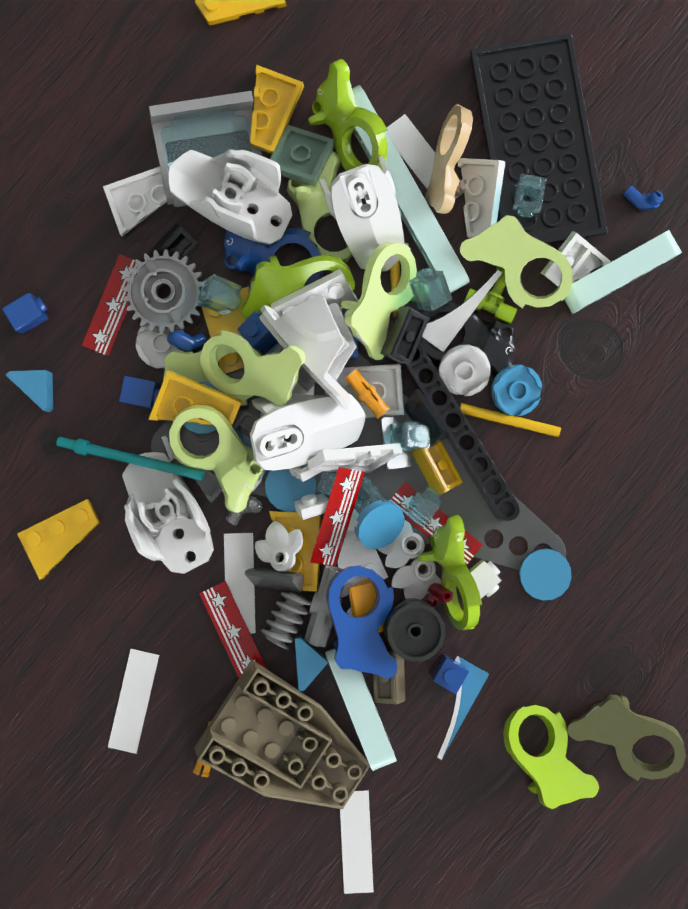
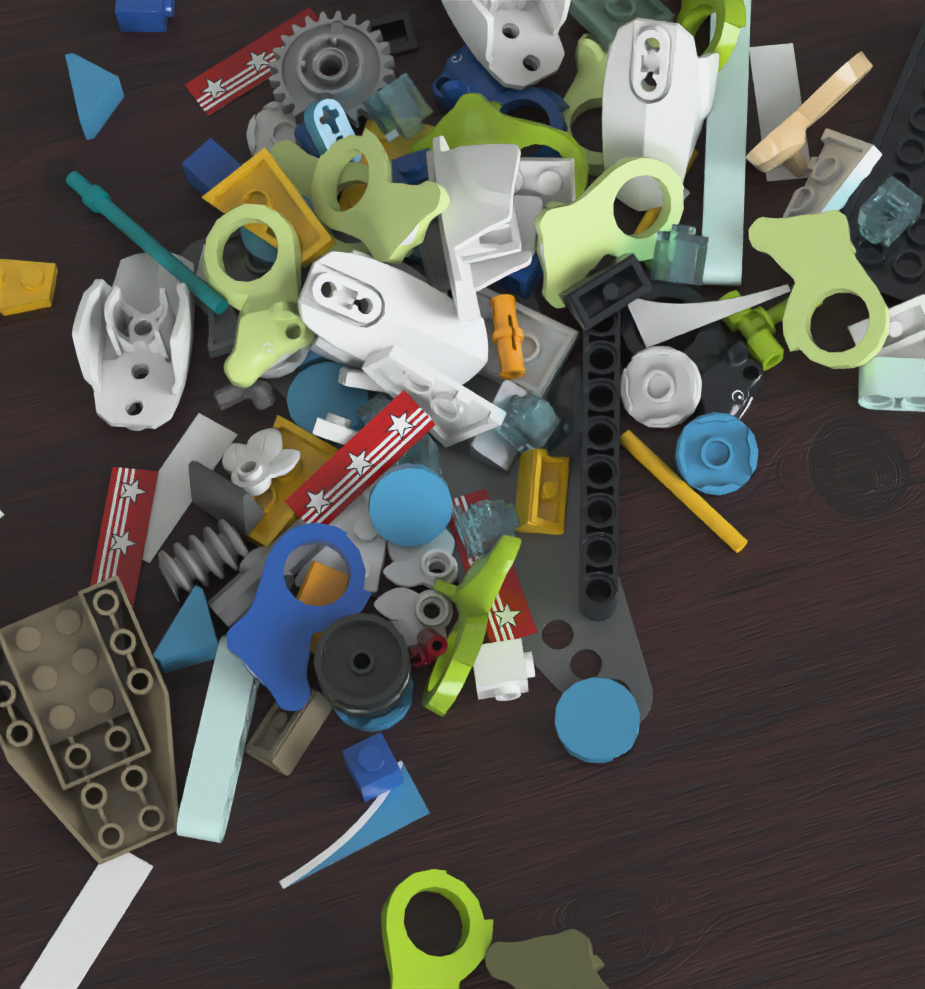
camera: 45 degrees right, 20 degrees down
(194, 329) = (336, 125): none -> medium azure beam

